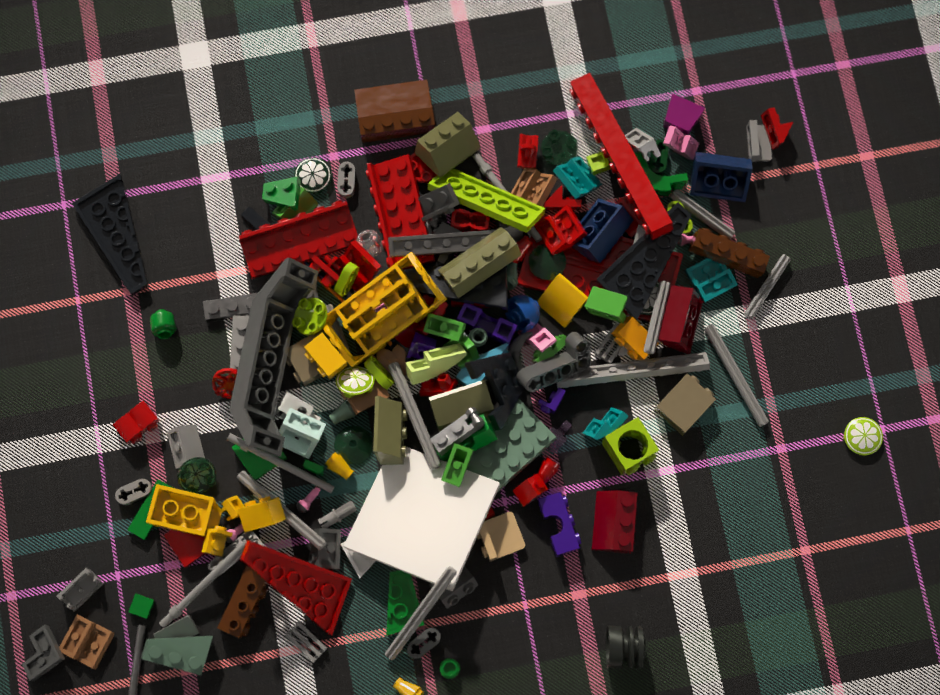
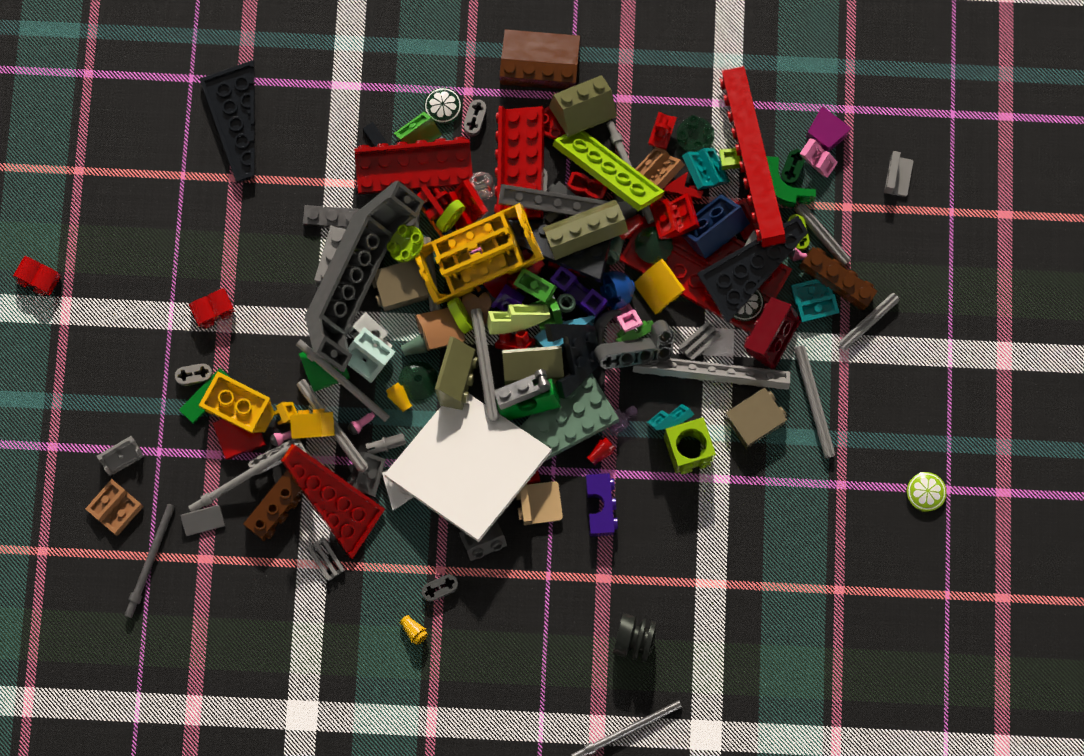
camera: 15 degrees right, 0 degrees up
(47, 654) = (73, 512): dark grey plate -> none
(141, 606) = (175, 486): green tile -> none
(162, 324) = (260, 218): green head -> none
(178, 652) = (200, 538): sand green wedge -> none
(184, 444) = (254, 341): light grey panel -> none
(196, 475) = (258, 373): clear green dish -> none
(215, 541) = (261, 440): yellow bracket -> none
(227, 383) = (309, 291): red wheel -> none
(282, 192) = (409, 116): green wing -> none
(314, 468) = (374, 393): green tile -> none
(325, 356) = (411, 286): yellow brick -> none
(354, 381) = (434, 317): dish -> none
(401, 601) = (428, 547): green wing -> none
(421, 612) = (444, 555): light grey axle -> none
(439, 201) = (560, 160): dark grey bracket -> none
(449, 668) = (459, 618): green plate -> none
(457, 465) = (514, 422): bright green slope -> none
(530, 489) = (580, 464): red brick -> none
(555, 399) = (628, 383): dark purple bracket -> none
(606, 304) = (701, 300): bright green panel -> none
(614, 521) = (656, 515): dark red slope -> none
(632, 337) = (721, 341): light orange brick -> none
(642, 143) = (778, 148): light grey hinge -> none
(657, 317) = (748, 325): light grey axle -> none
(720, 177) = (850, 201): dark blue slope -> none
(775, 131) = (917, 168): red slope -> none

